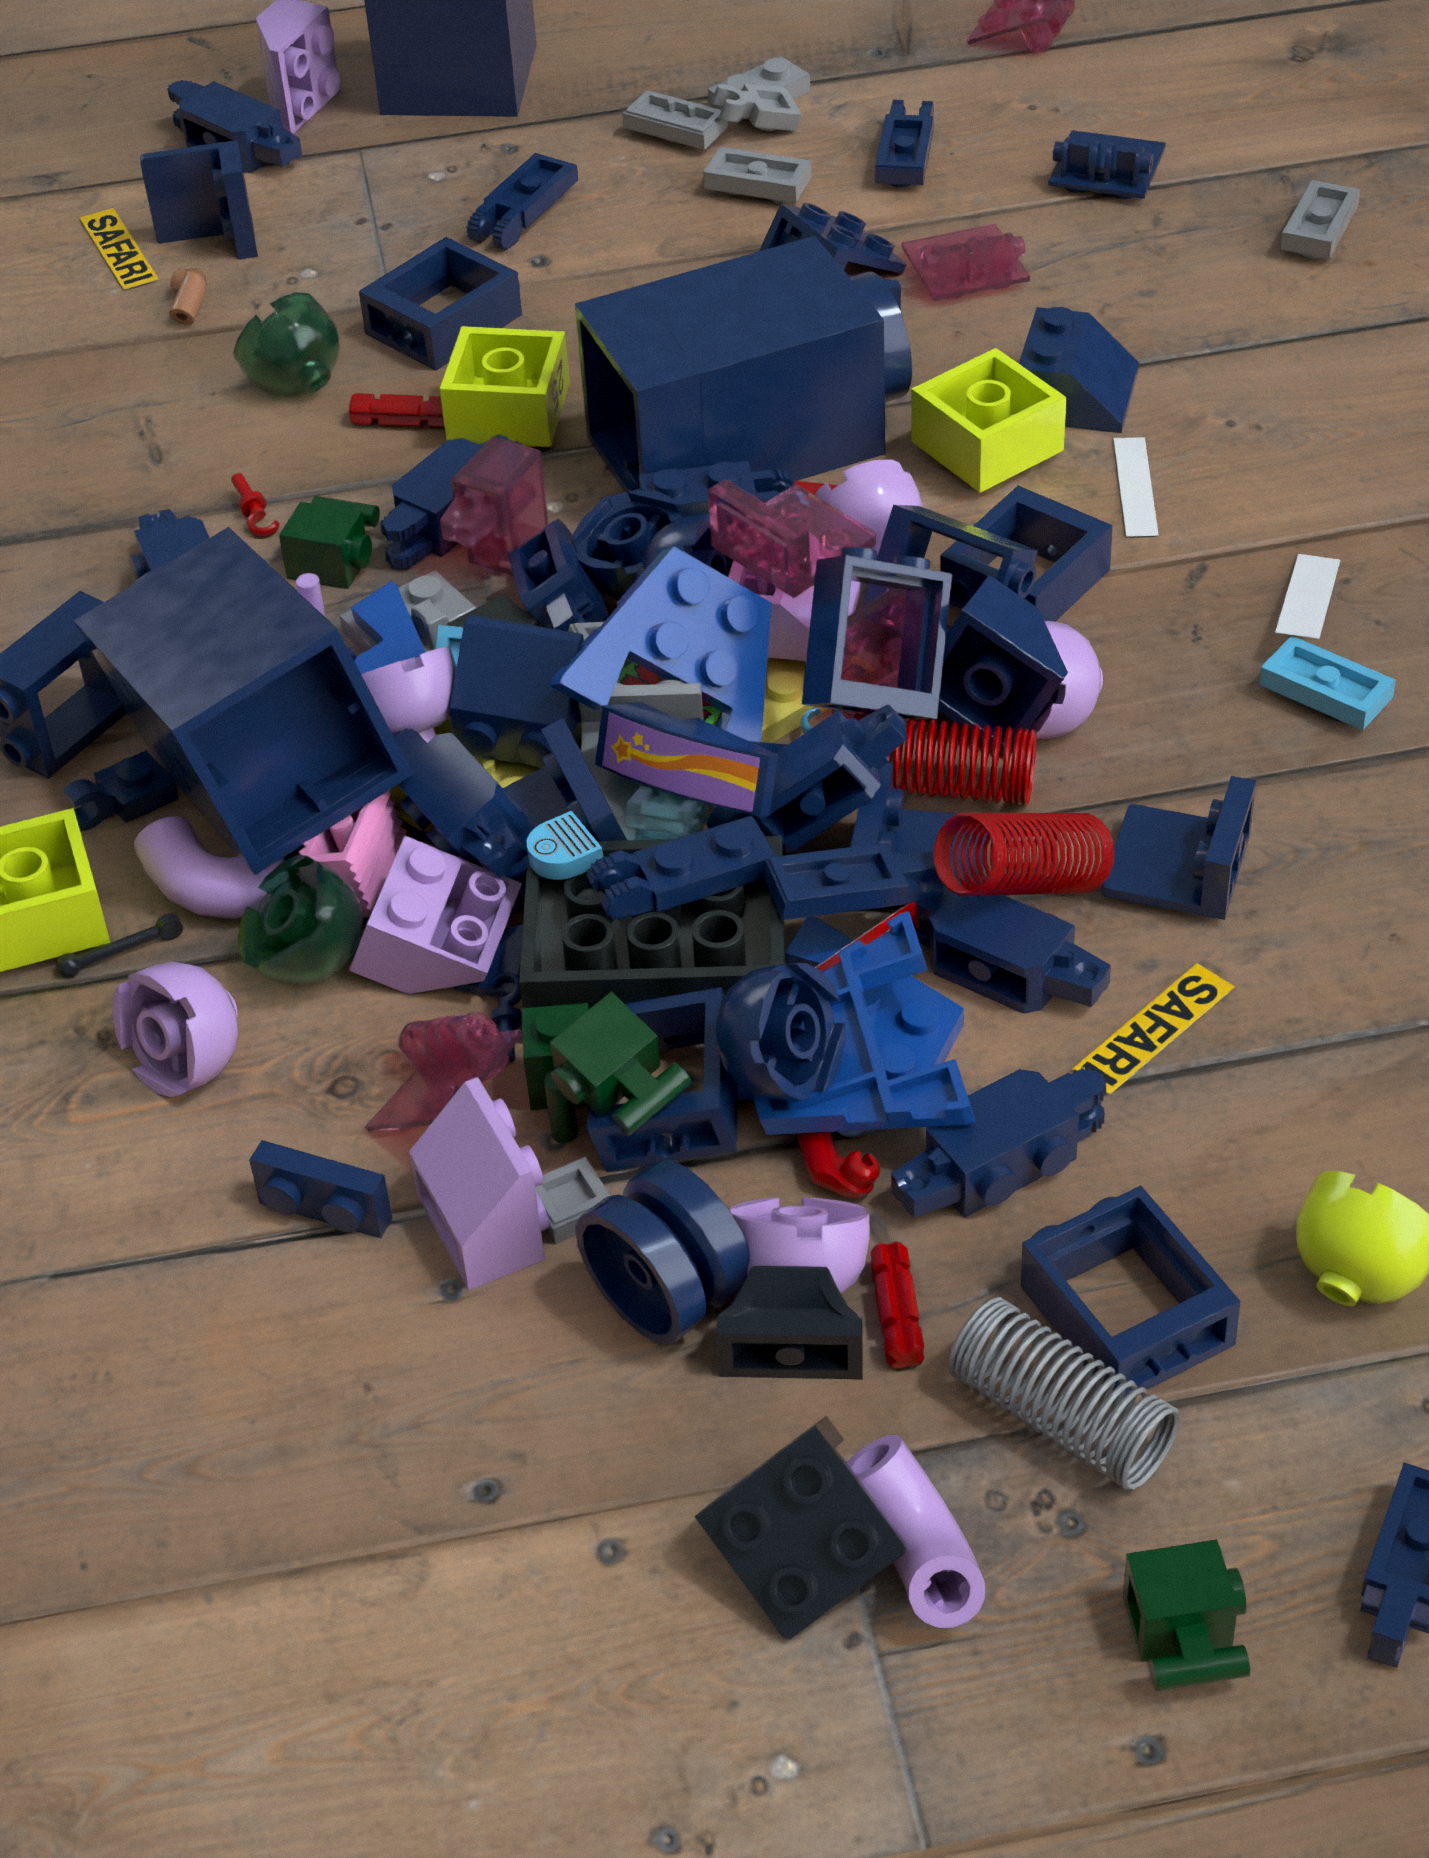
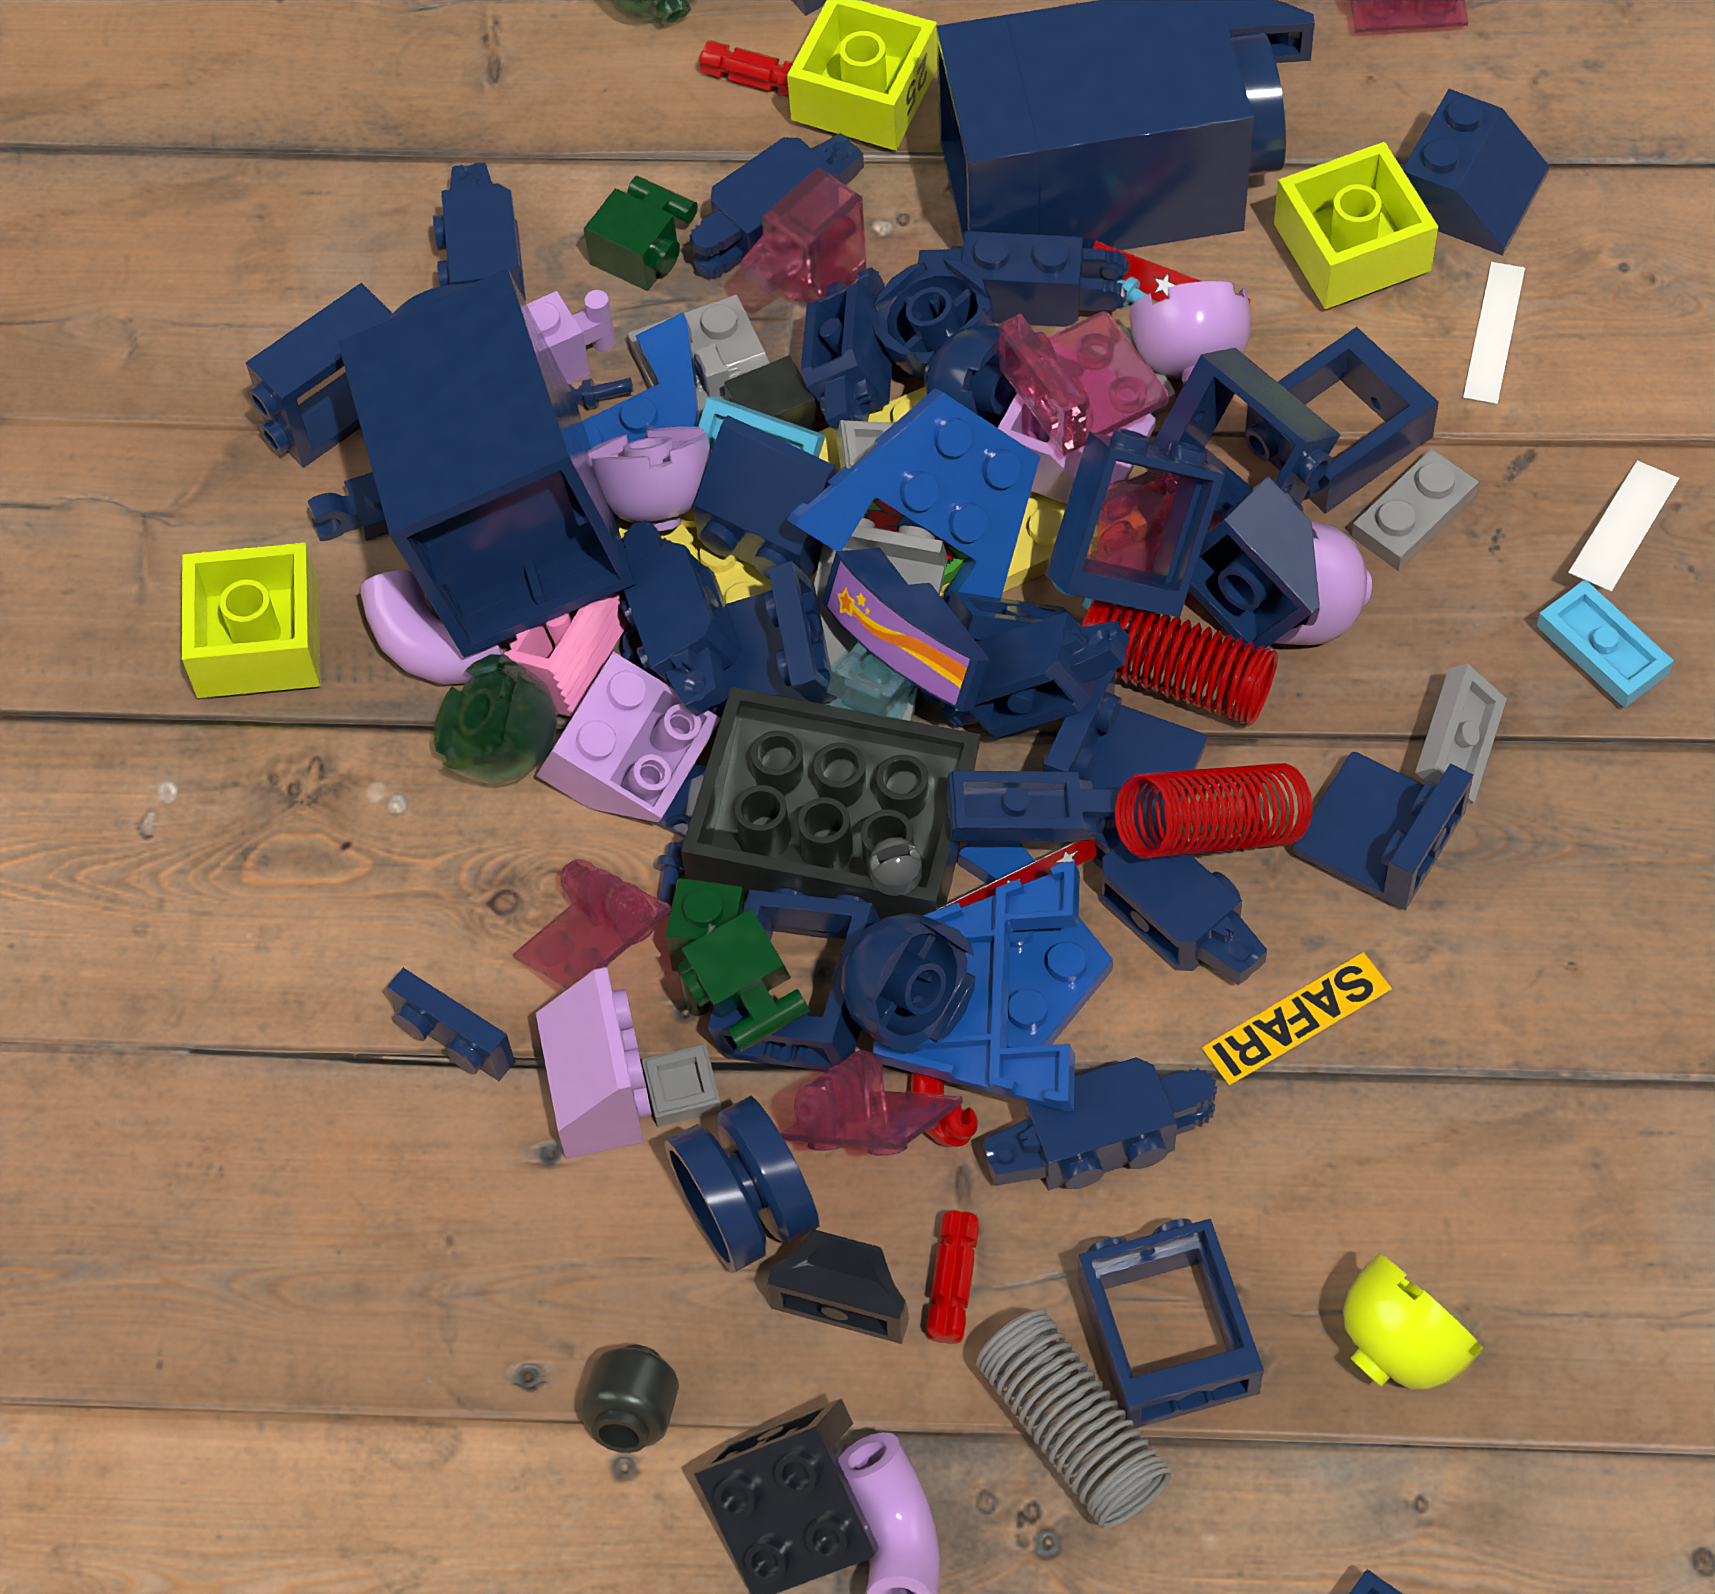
camera: 15 degrees right, 15 degrees up
(166, 927) = (376, 680): black hinge -> none
(177, 1024) = (360, 810): lavender cylinder -> none
(253, 505) = (574, 164): red hand -> none
(562, 848) = (759, 705): medium azure tile -> none
(601, 1475) = (629, 1398): none -> pearl dark grey head
(681, 869) = (869, 758): dark blue hinge -> none
(736, 948) = (899, 873): none -> dark grey hinge
(747, 1162) = (854, 1110): none -> clear pink hinge
(811, 1235) = (875, 1198): lavender cylinder -> none
(1120, 616) = (1415, 509): none -> light grey plate
(1219, 754) = (1462, 727): none -> light grey plate

